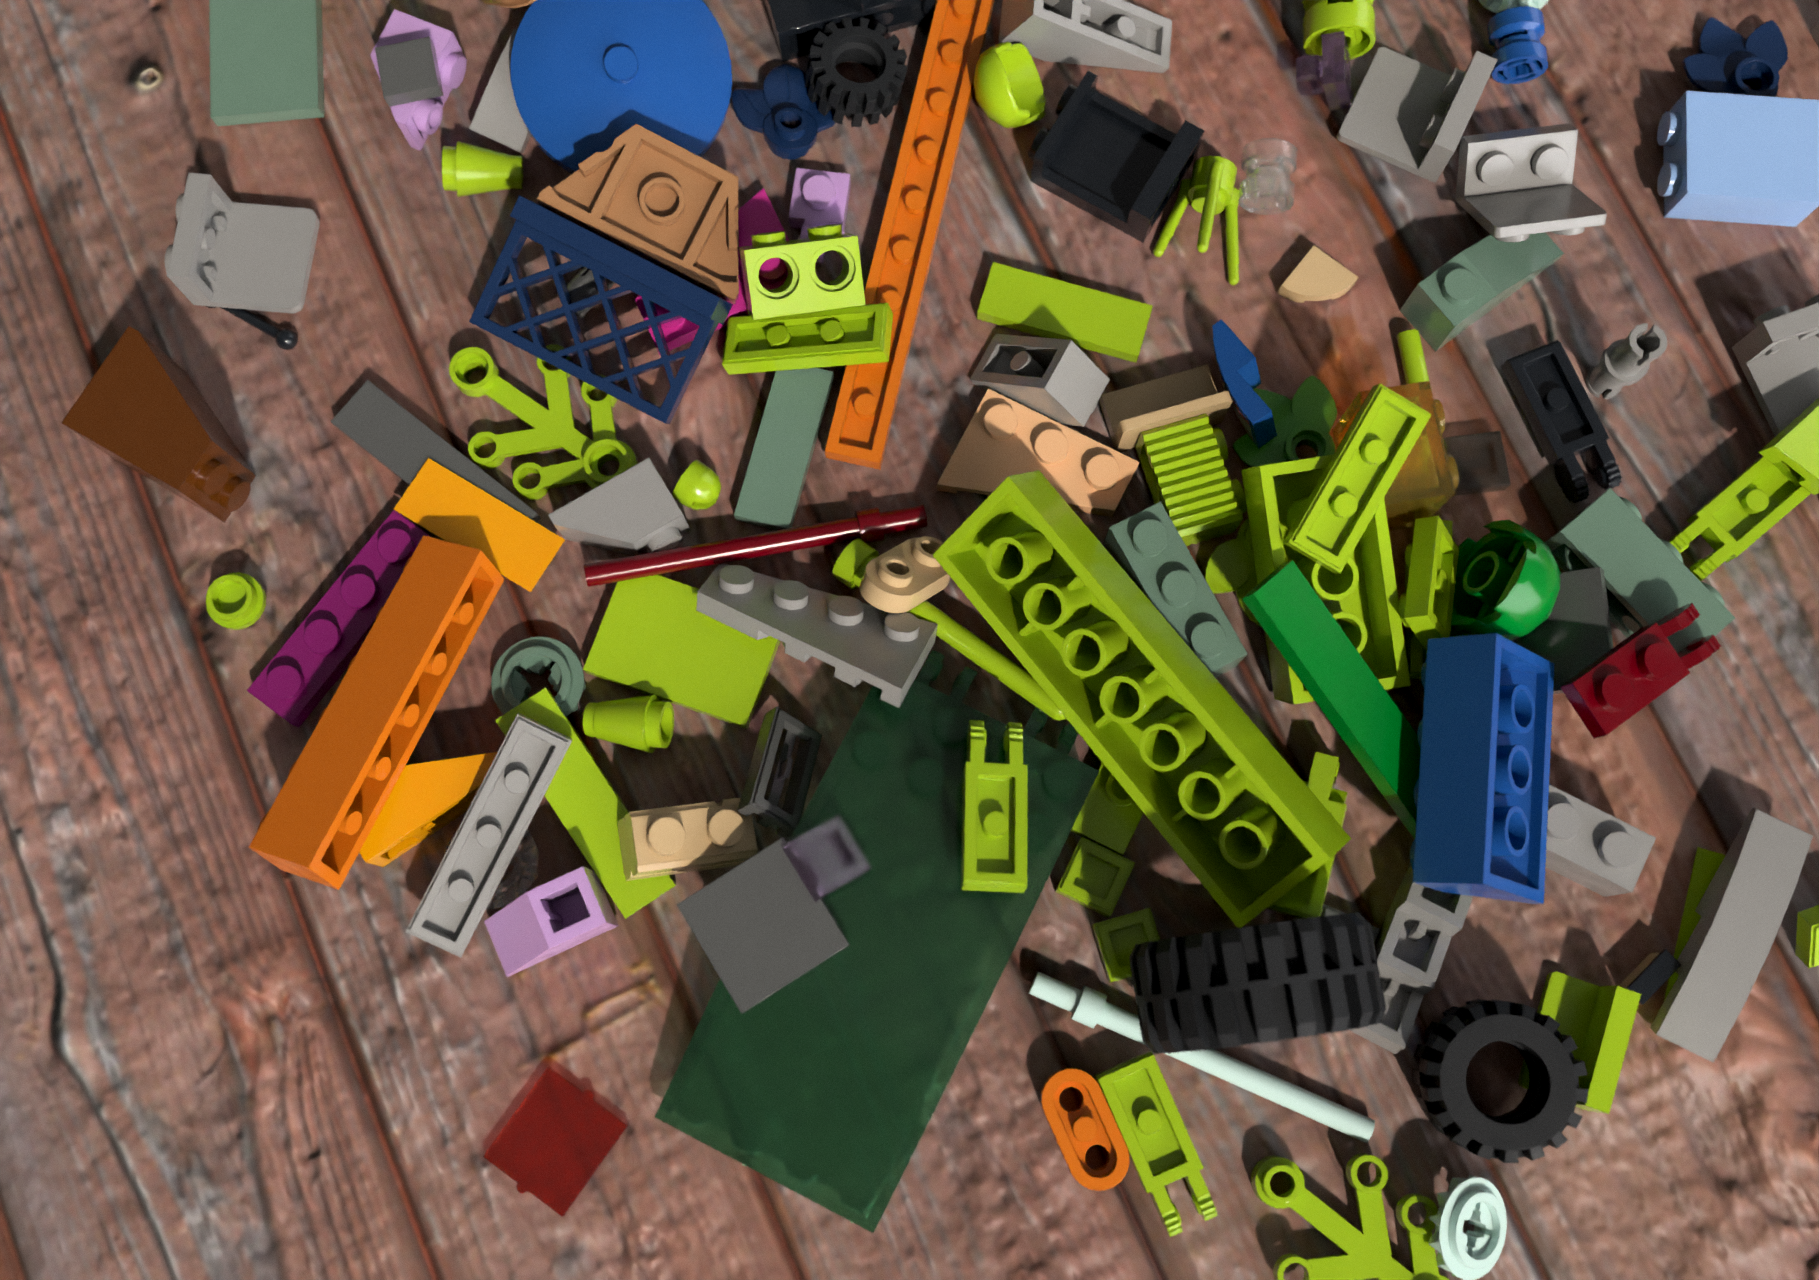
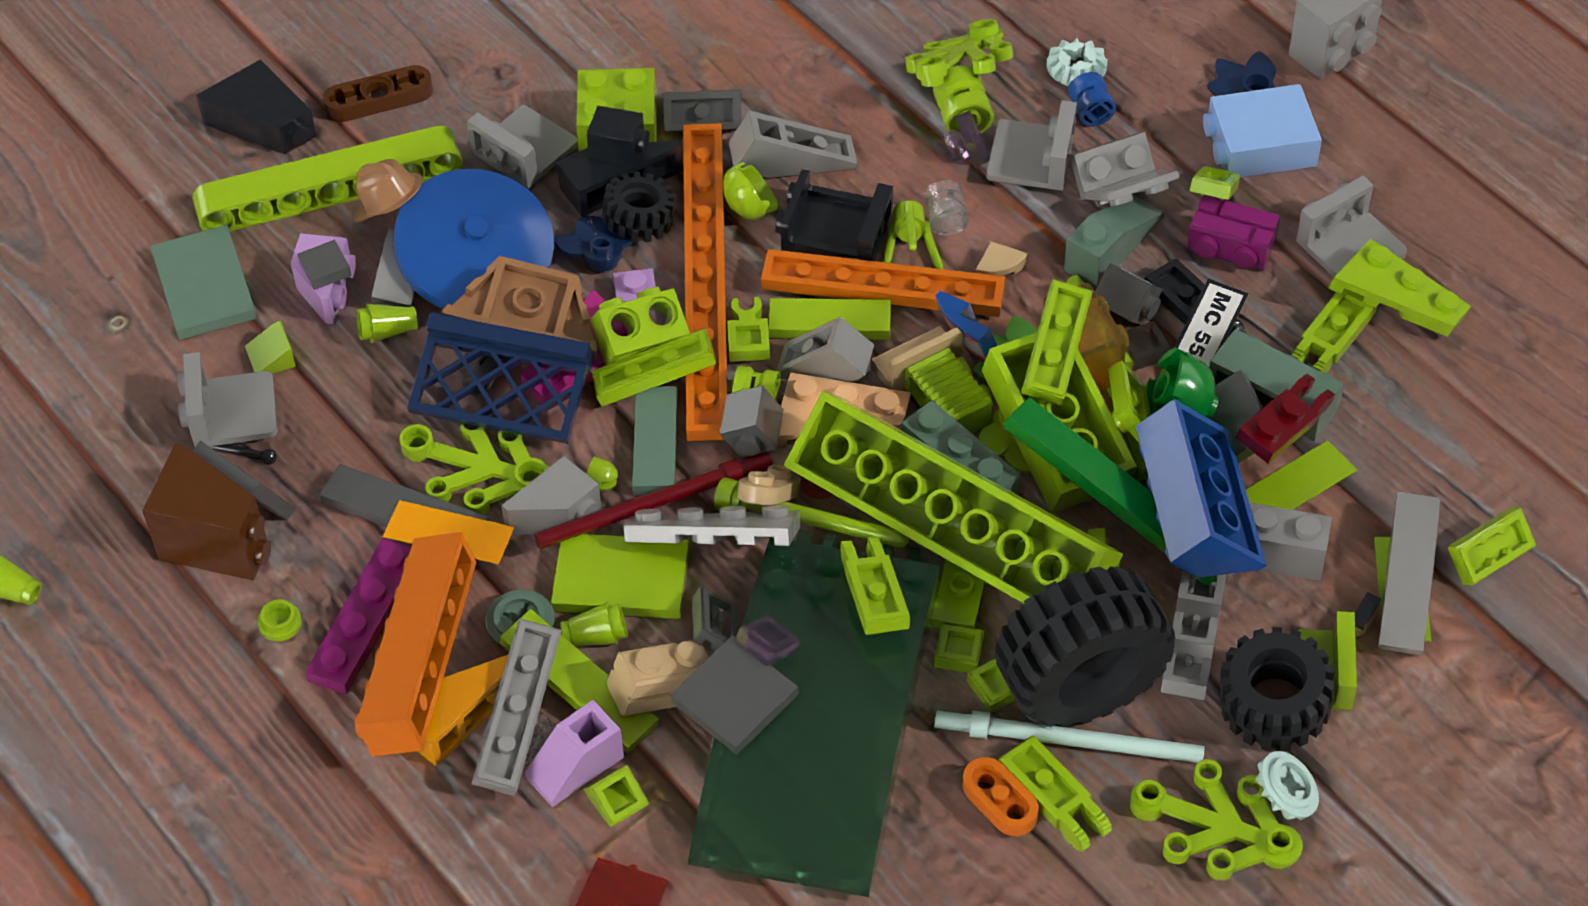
camera: 15 degrees left, 25 degrees down
(225, 386) = (262, 494): none -> dark grey tile
(326, 177) = (271, 350): none -> lime slope
(594, 978) = (617, 795): none -> lime slope
(913, 461) = (751, 421): none -> dark grey brick
(935, 404) = (747, 378): none -> lime wheel
(948, 314) = (748, 333): none -> lime plate
(1149, 275) = (879, 280): none -> orange plate
(1477, 387) = (1129, 294): none -> dark grey brick
(1567, 471) = (1211, 320): none -> white sticker
(1626, 361) = (1221, 253): light grey pin -> none
(1642, 294) = (1233, 232): none -> magenta brick
(1650, 233) = (1215, 182): none -> lime plate
(1653, 730) = (1302, 478): none -> lime sticker

